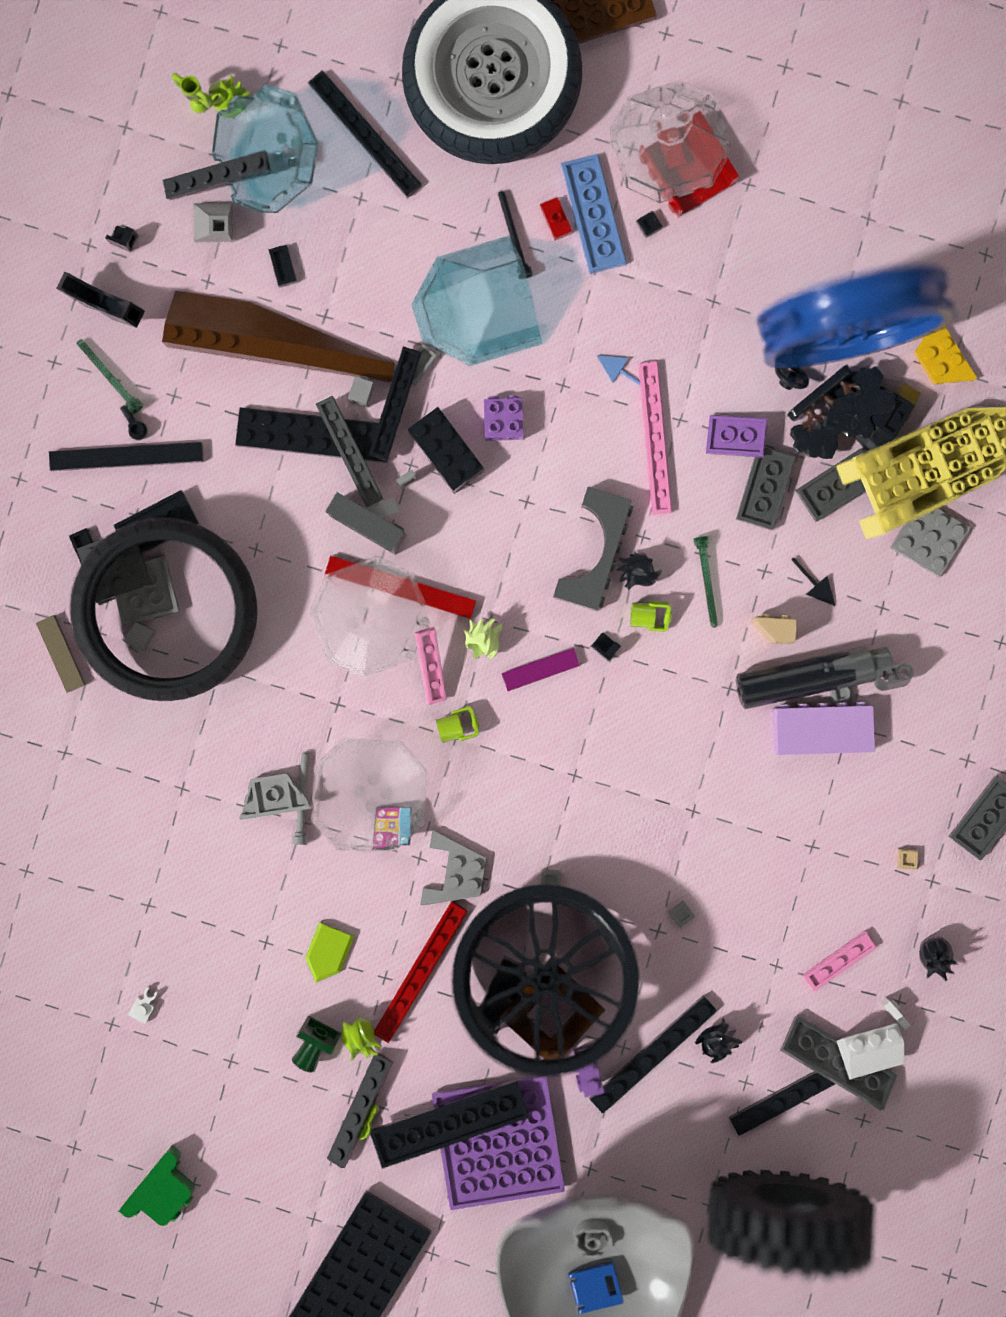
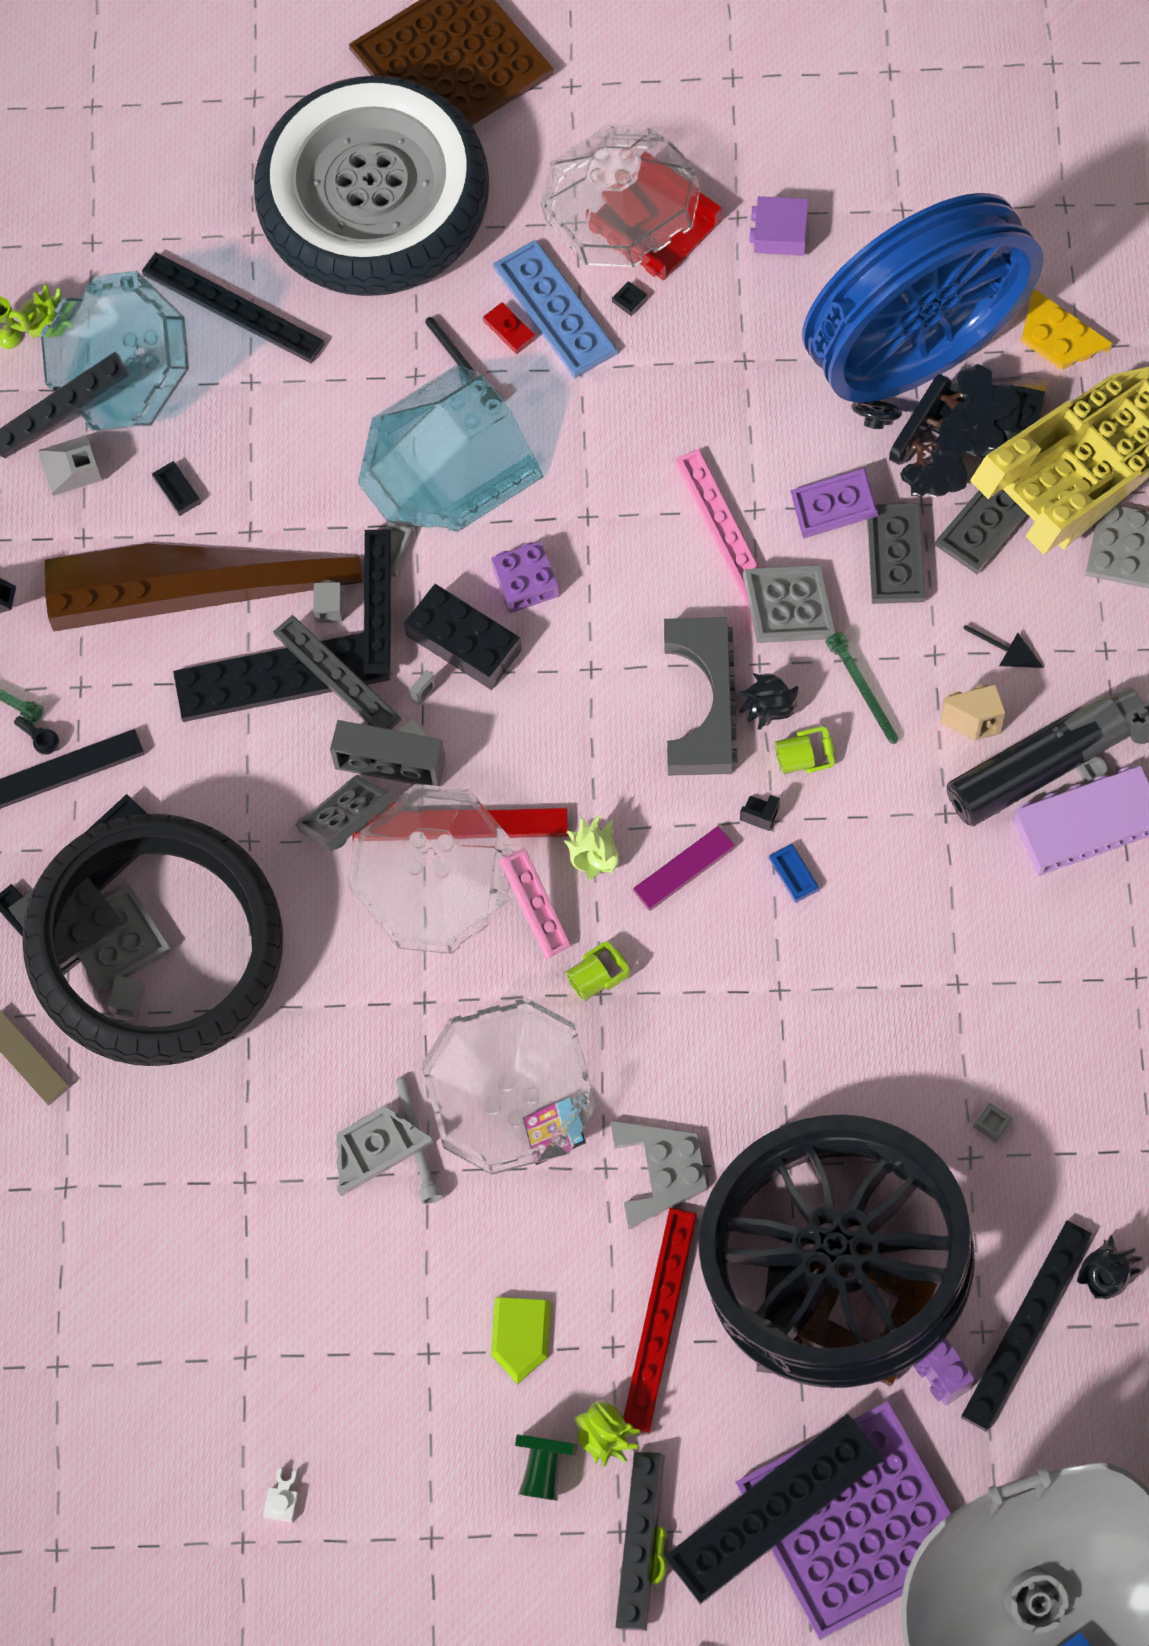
camera: 15 degrees left, 20 degrees down
(322, 558) = (344, 813): none -> dark grey plate
(612, 697) = (793, 873): none -> blue tile
(614, 365) = (646, 472): medium blue piece -> none
(677, 503) = (788, 604): none -> light grey plate
(775, 204) = (779, 225): none -> medium lavender brick

